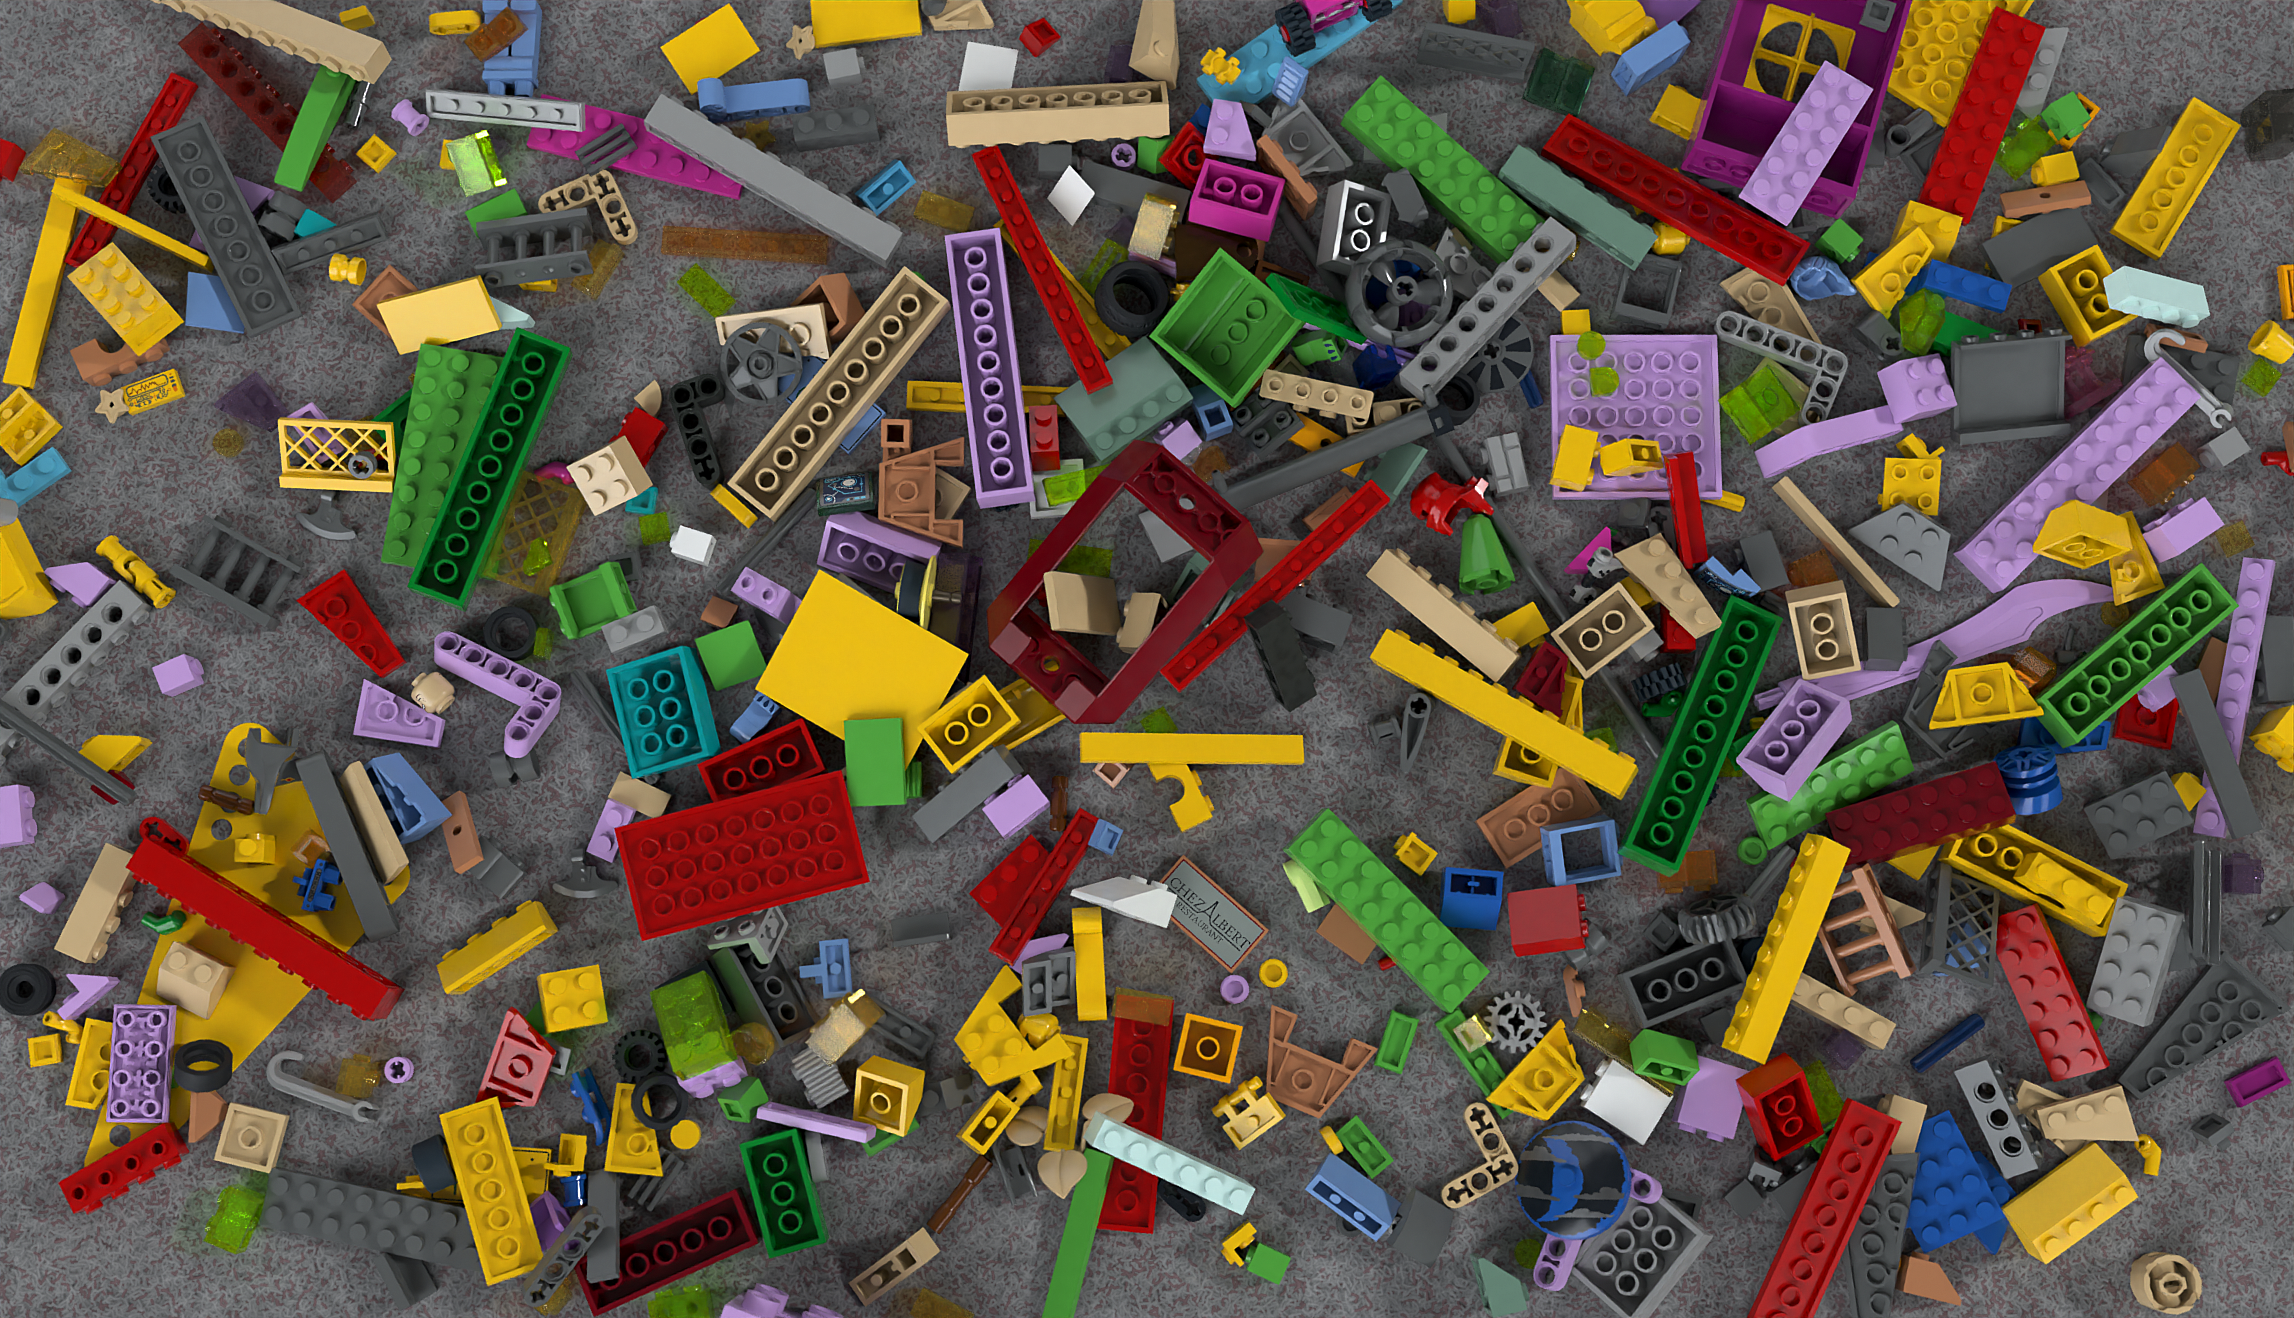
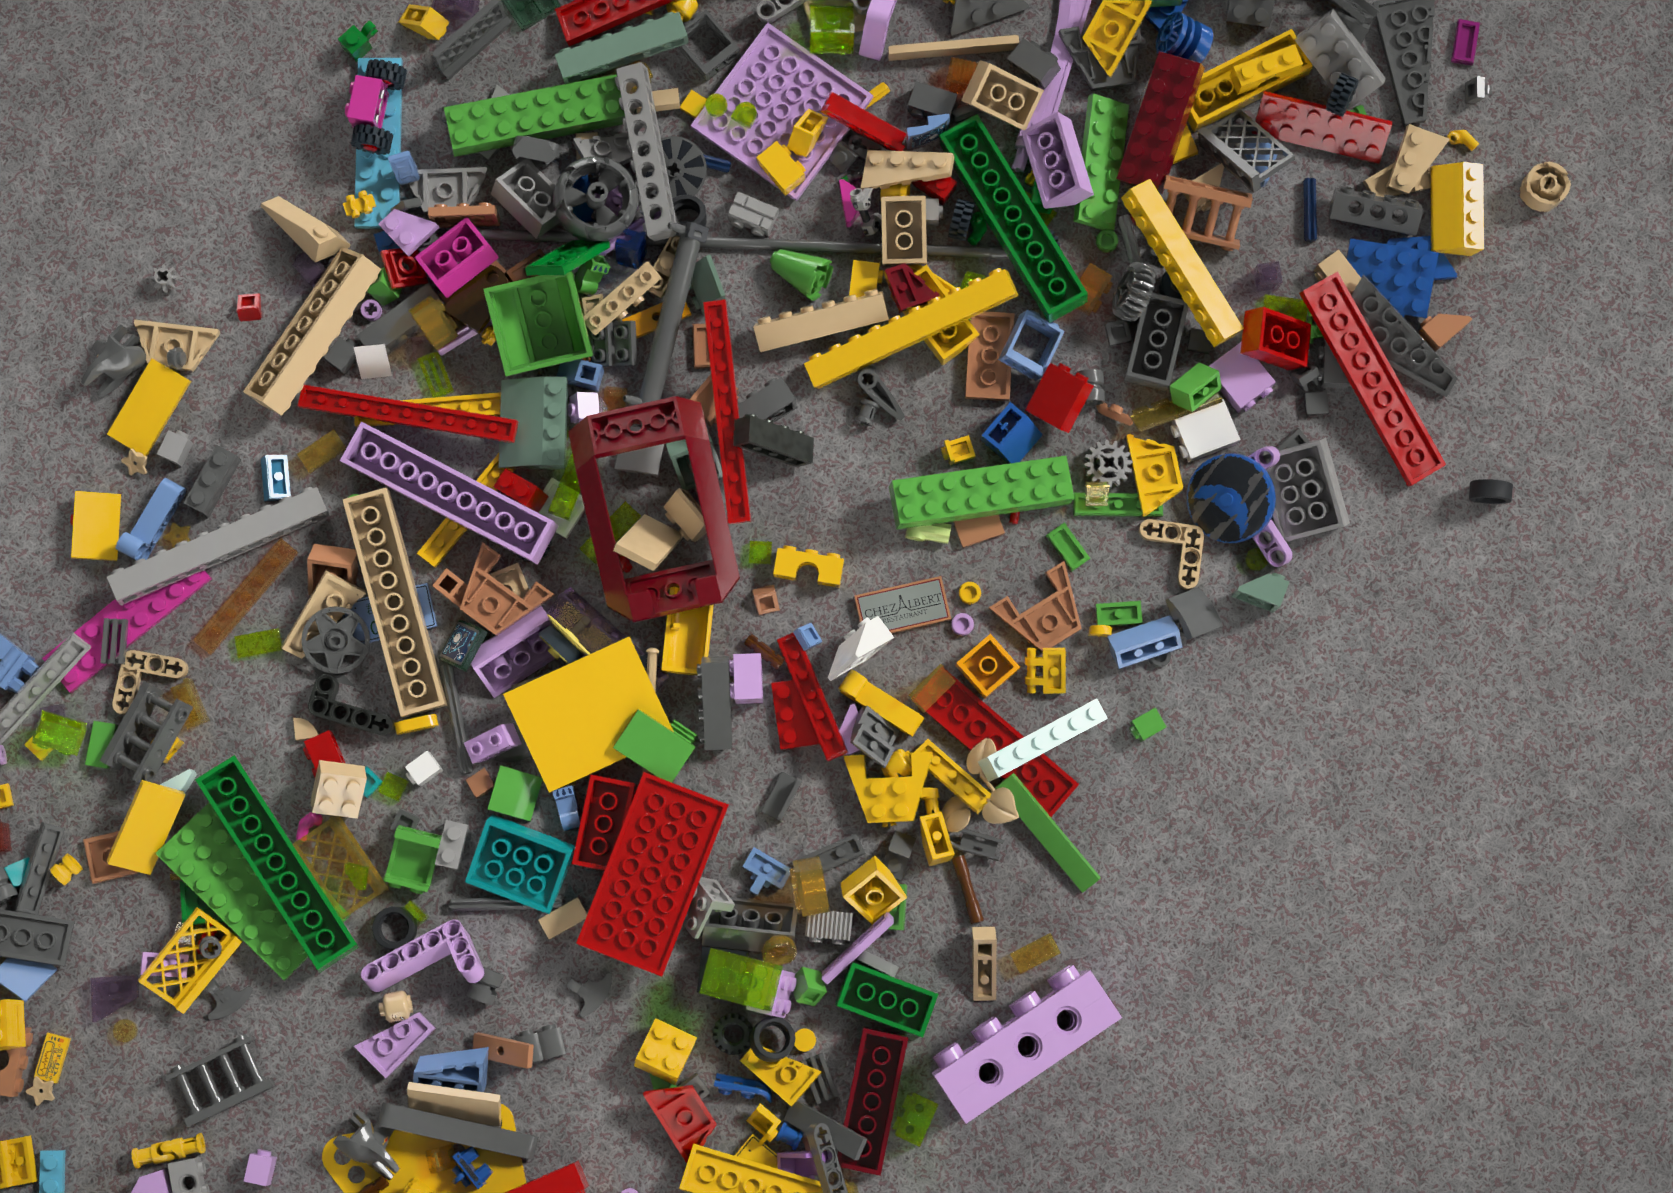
camera: 50 degrees left, 0 degrees up
(352, 620) = (307, 1028): red wing -> none
(496, 948) = (596, 1079): yellow slope -> none
(604, 839) = (572, 953): lavender plate -> none
(968, 724) = (674, 669): yellow slope -> none
(987, 67) = (244, 355): white sticker -> none
(1144, 278) = (465, 353): black tyre -> none
(1177, 1204) = (1068, 745): black beam -> none
(1191, 748) = (791, 541): yellow tile -> none
(1239, 1237) = (1120, 730): yellow bracket -> none
(1441, 501) = (747, 271): red piece -> none
(1842, 1012) = (1245, 259): tan brick -> none
(2097, 990) = (1342, 94): none -> black bush

